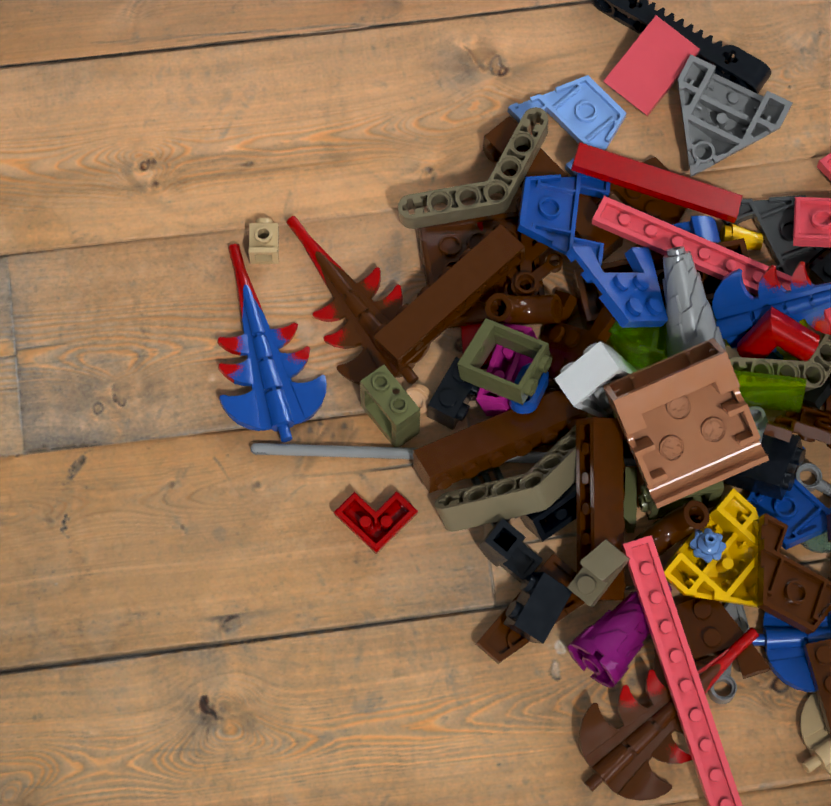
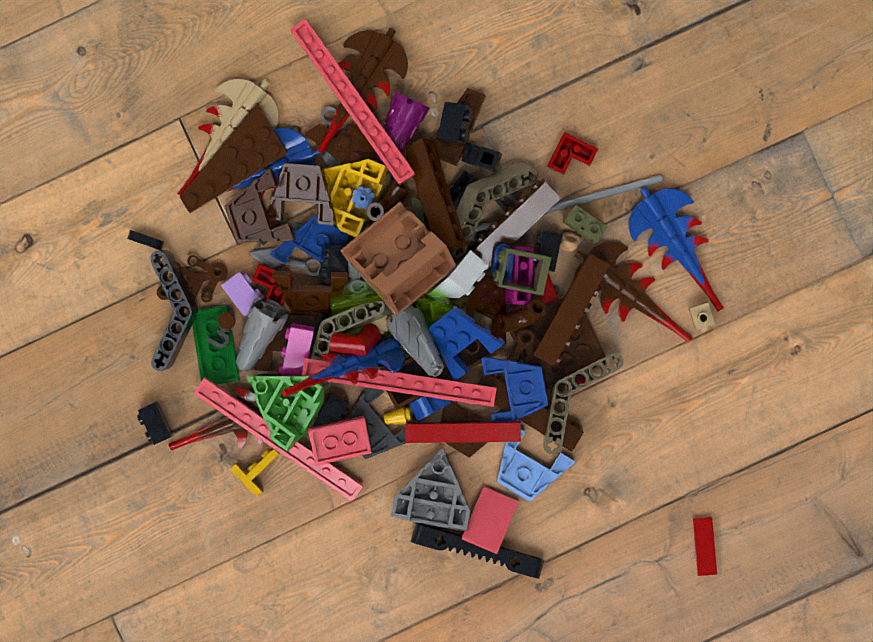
camera: 170 degrees right, 20 degrees up
(598, 572) = (424, 151): dark tan slope -> none

